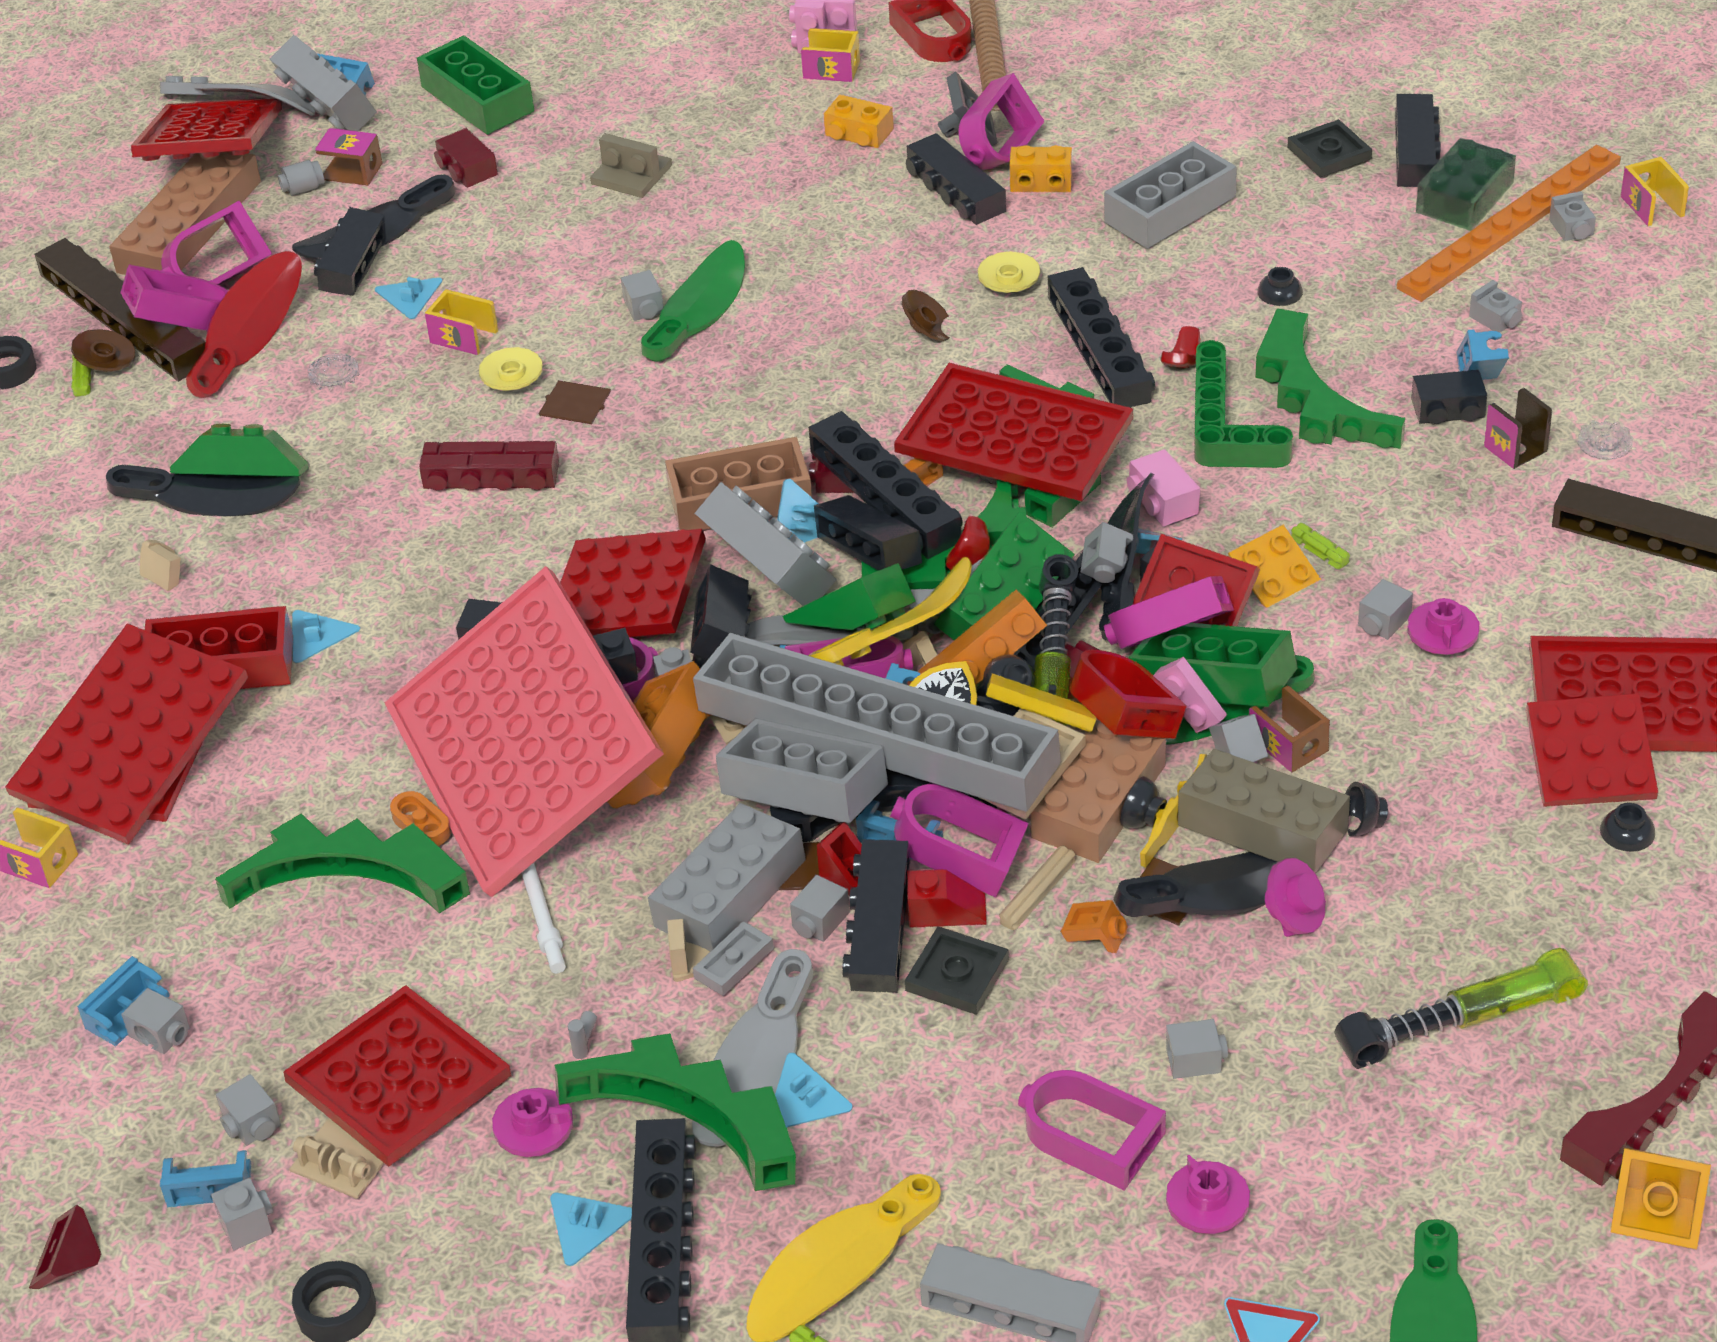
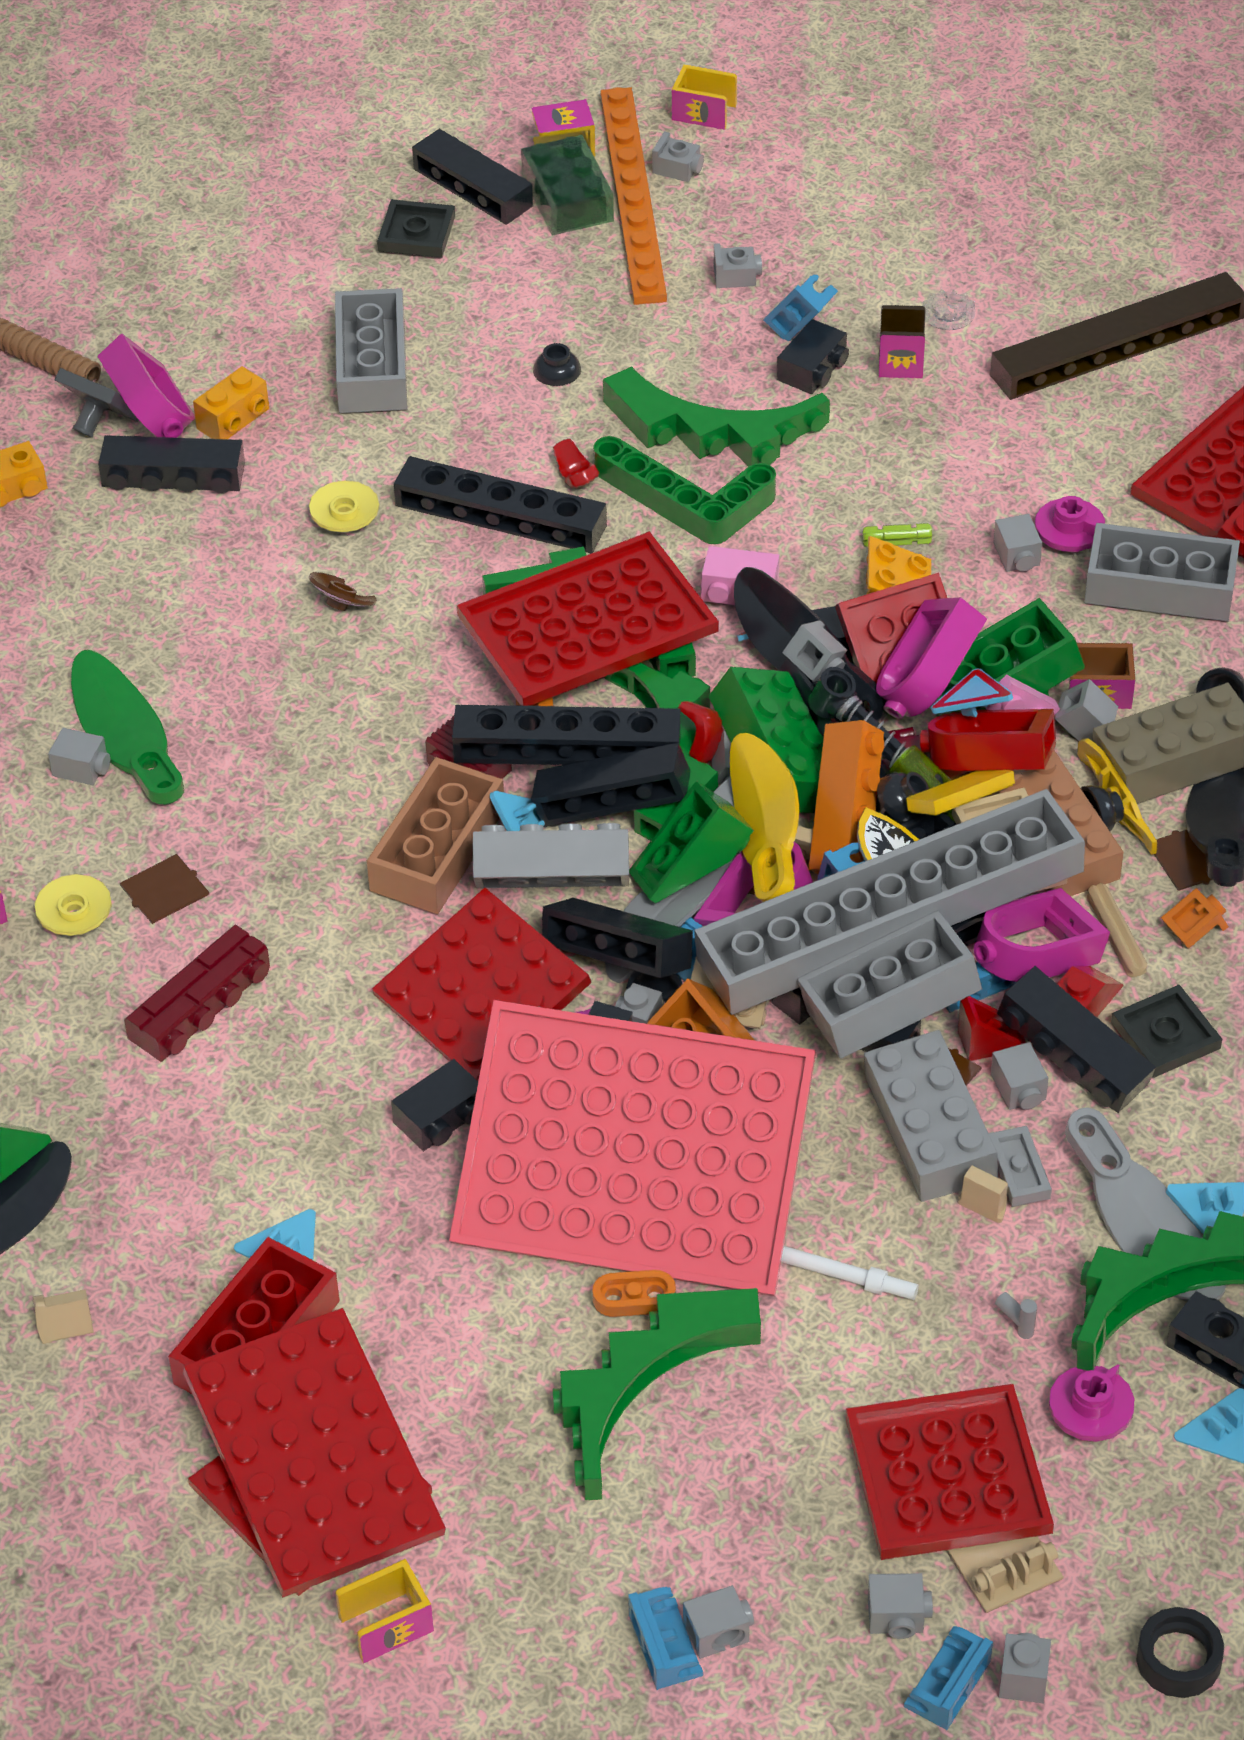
camera: 55 degrees left, 5 degrees up
(1145, 652) = (972, 691): none -> medium azure piece
(1447, 702) = (1162, 572): none -> light grey brick
(1527, 145) = (563, 121): none -> piece

